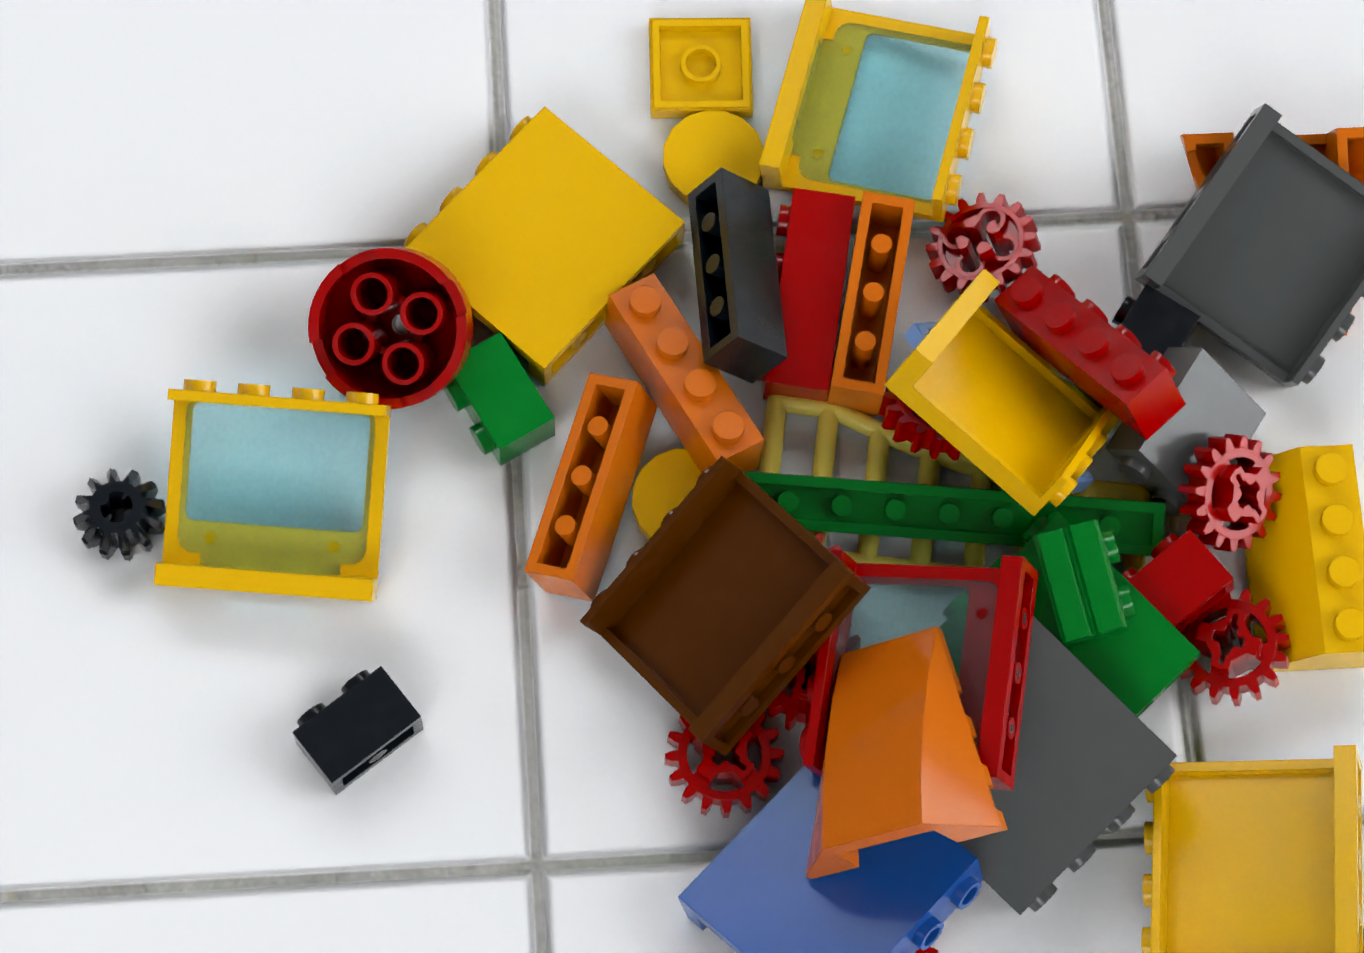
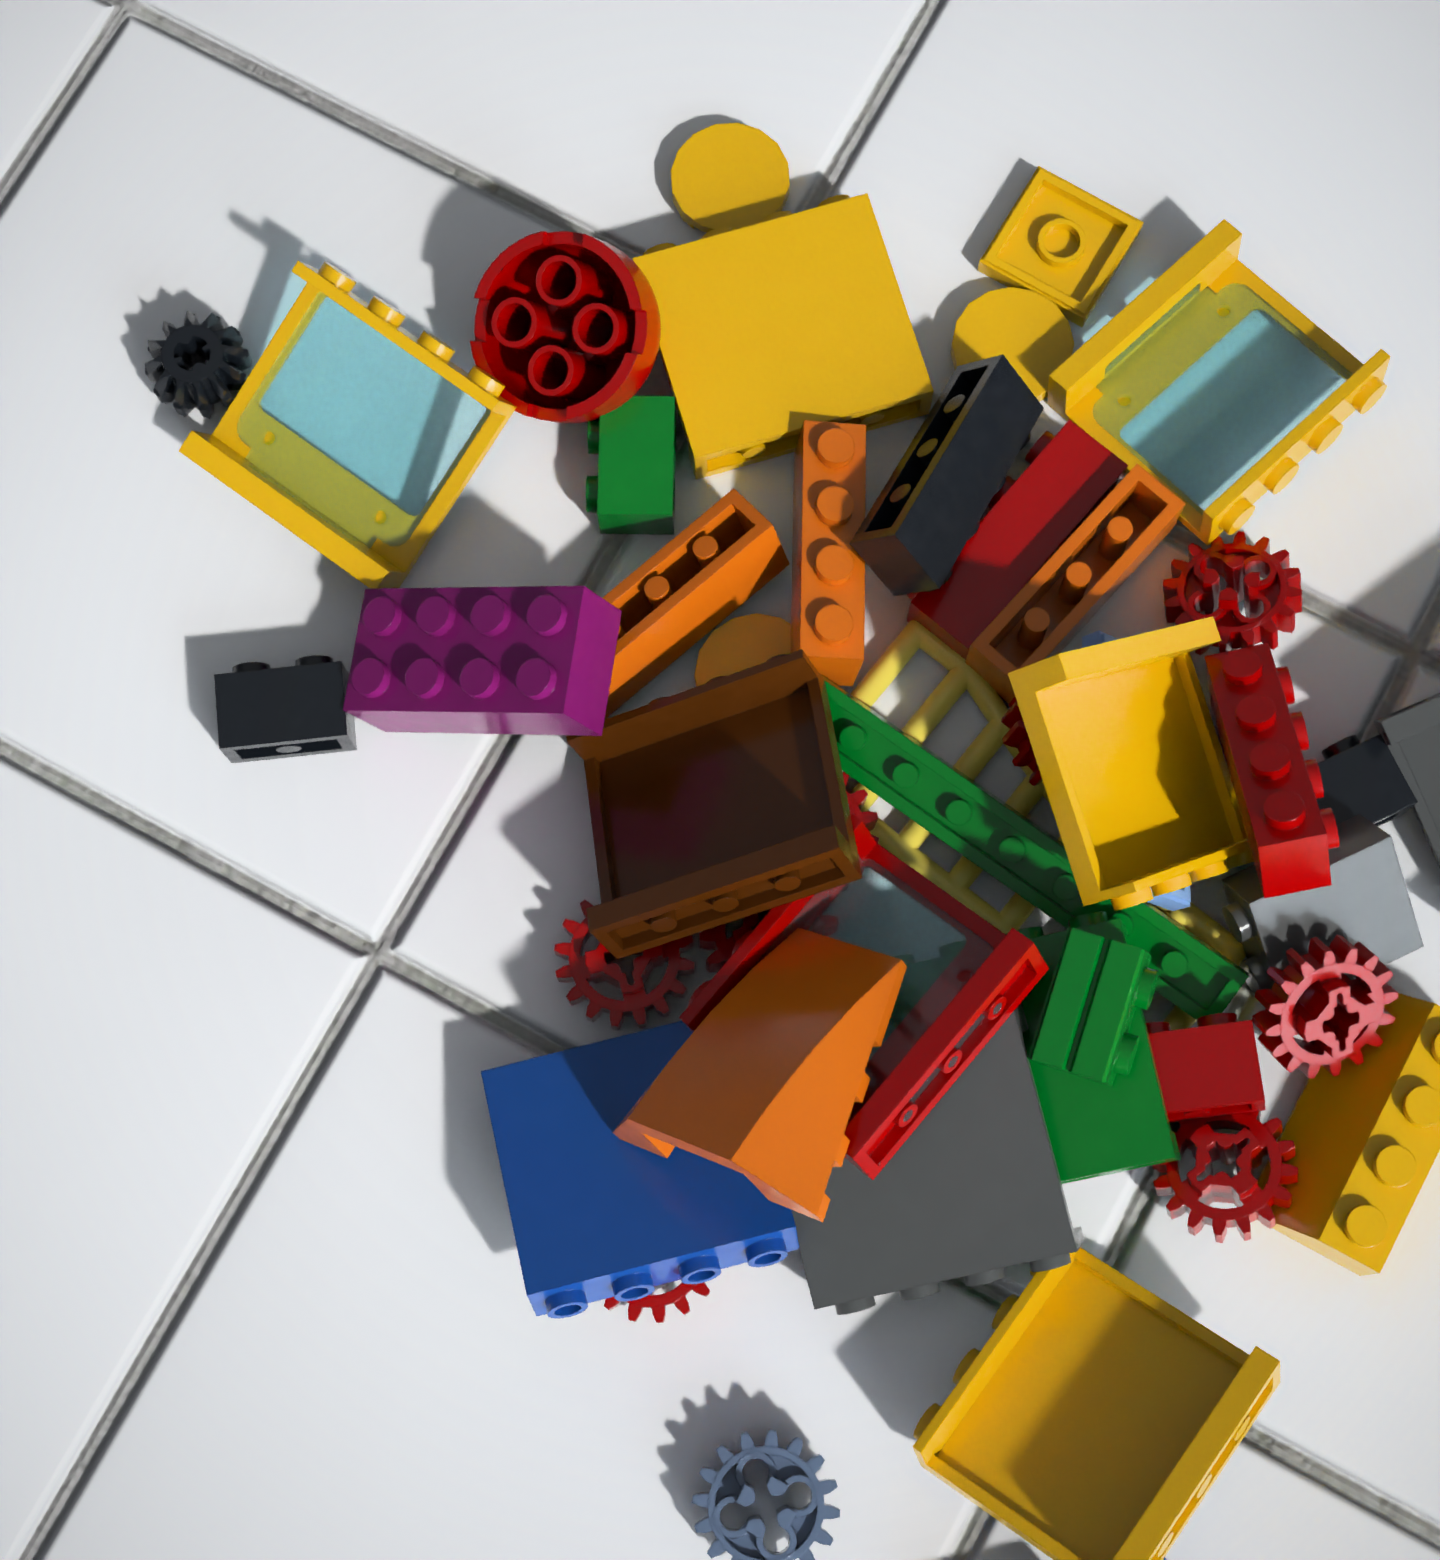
camera: 40 degrees right, 5 degrees up
(429, 152) = (729, 177): none -> yellow tile
(489, 602) = (484, 660): none -> magenta brick

